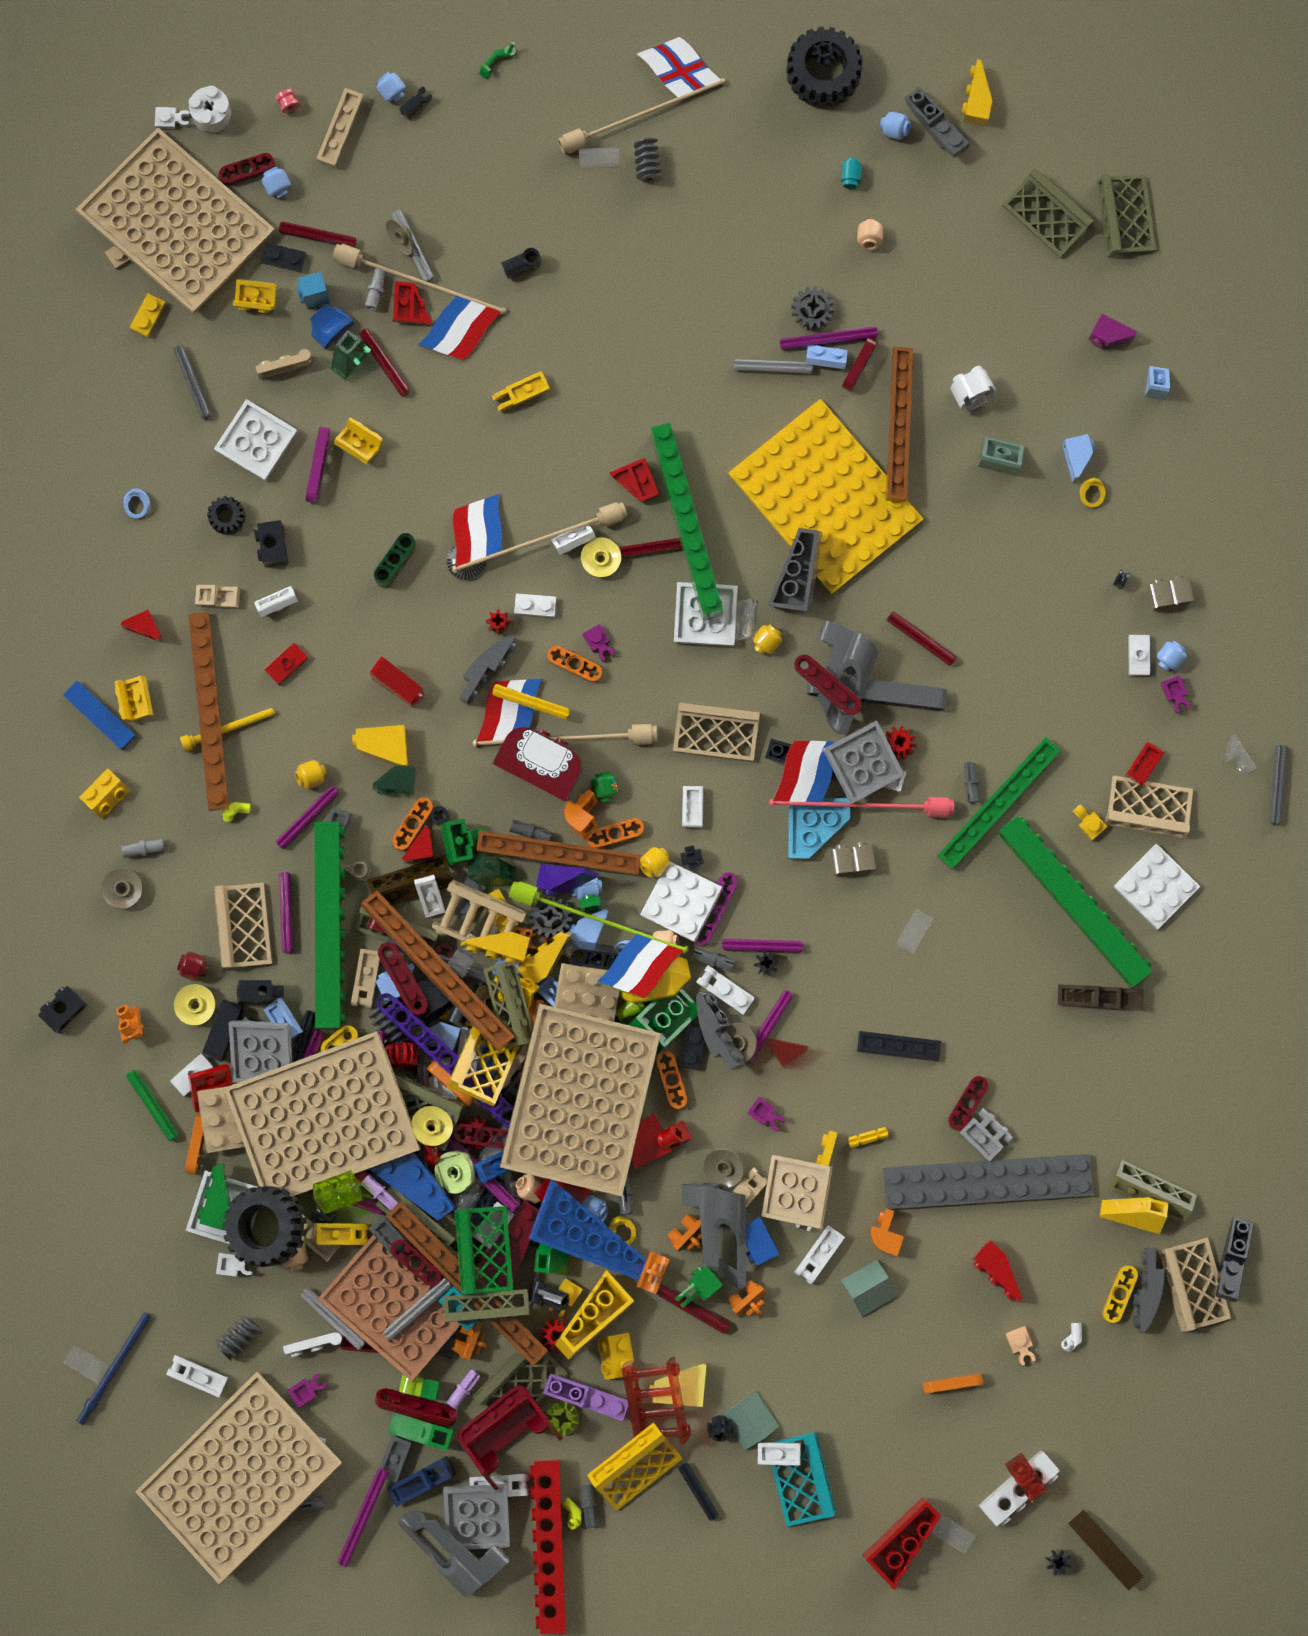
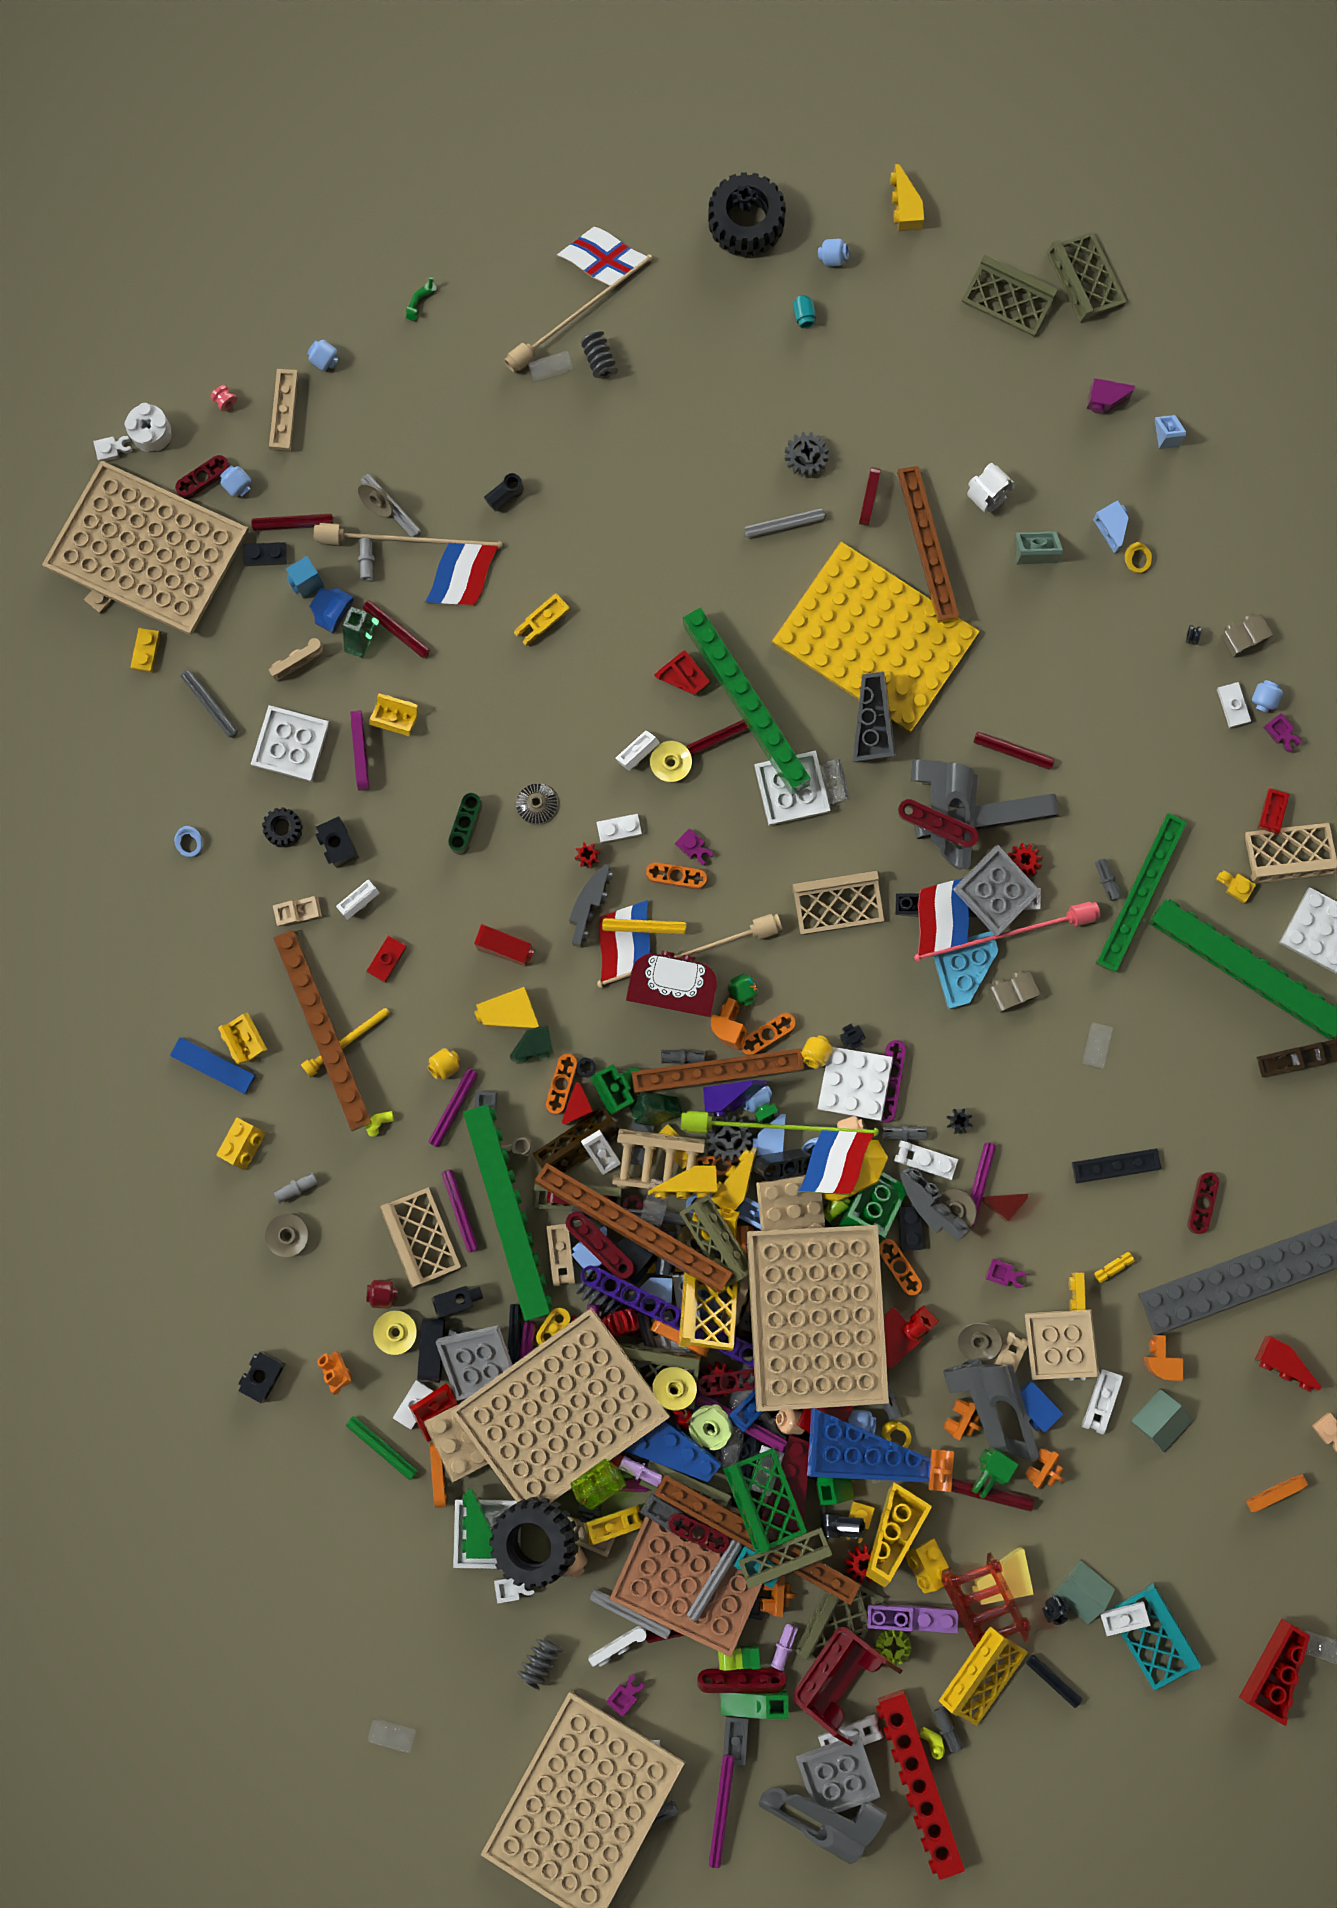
camera: 10 degrees left, 0 degrees up
(92, 1403) = (409, 1774): dark blue bar -> none
(143, 625) = (230, 961): red slope -> none
(198, 1376) = (509, 1714): white plate -> none
(255, 295) = (247, 599): yellow bracket -> none
(279, 1013) = (485, 1317): light blue plate -> none
(408, 305) = (403, 565): red wing -> none
(414, 103) = (351, 365): black bar -> none
(421, 1481) = (770, 1755): dark blue slope -> none
(480, 532) = (543, 773): flag -> none
(692, 807) = (837, 984): white plate -> none
(762, 945) = (949, 1104): magenta axle -> none
(767, 639) = (861, 795): yellow head -> none
(826, 356) = (834, 498): light blue plate -> none
(828, 338) = (830, 480): magenta axle -> none
(870, 234) = (841, 366): light nougat head -> none
(935, 123) = (871, 239): dark grey slope -> none
(981, 1139) = (1228, 1235): light grey plate -> none

